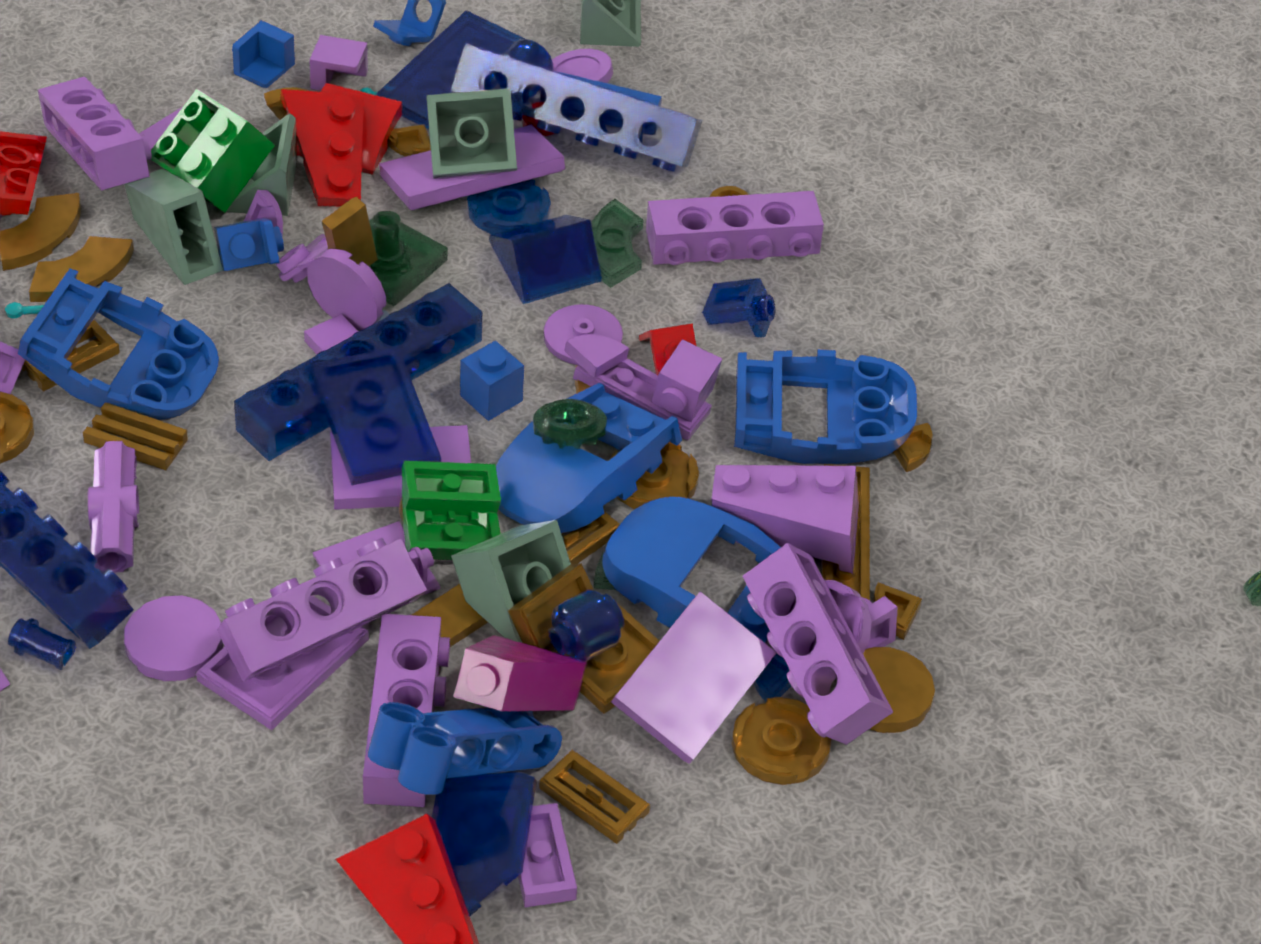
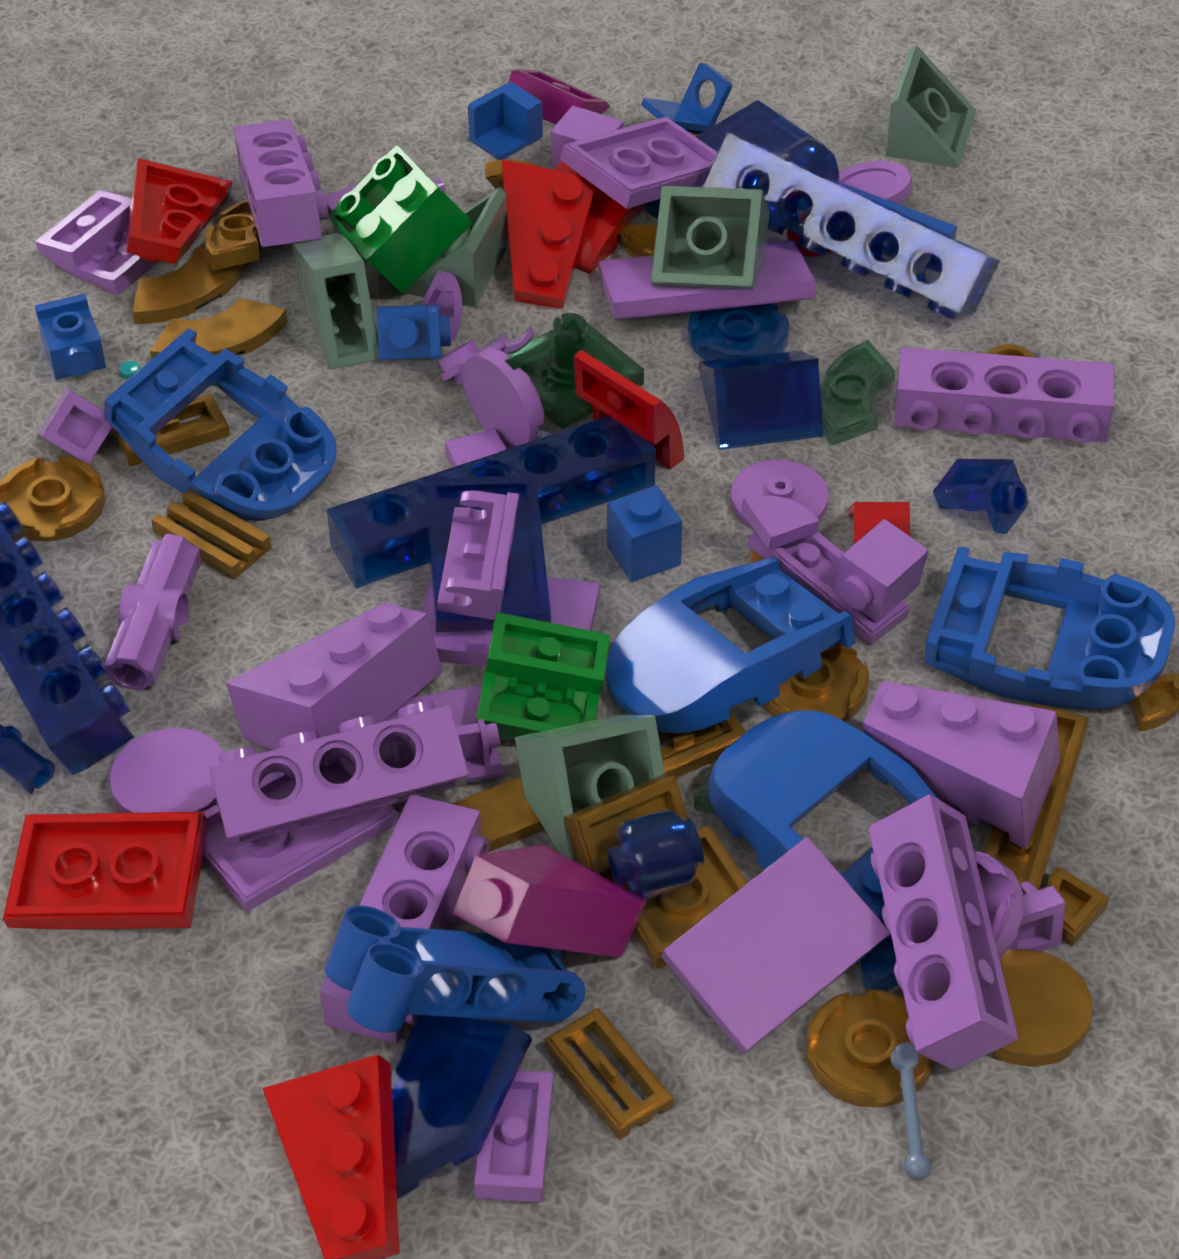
camera: 20 degrees right, 0 degrees up
(67, 185) = (233, 238): none -> pearl gold tile
(150, 718) = (107, 871): none -> red tile
(287, 536) = (339, 676): none -> medium lavender wedge
(305, 29) = (555, 94): none -> magenta slope
(351, 231) = (519, 332): pearl gold tile -> none
(376, 417) = (478, 555): none -> medium lavender hinge
(395, 75) = (640, 160): none -> medium lavender tile
(439, 272) = (629, 405): none -> red slope
(584, 422) = (734, 599): clear green gear -> none
(812, 742) = (905, 1059): none -> sand blue hinge

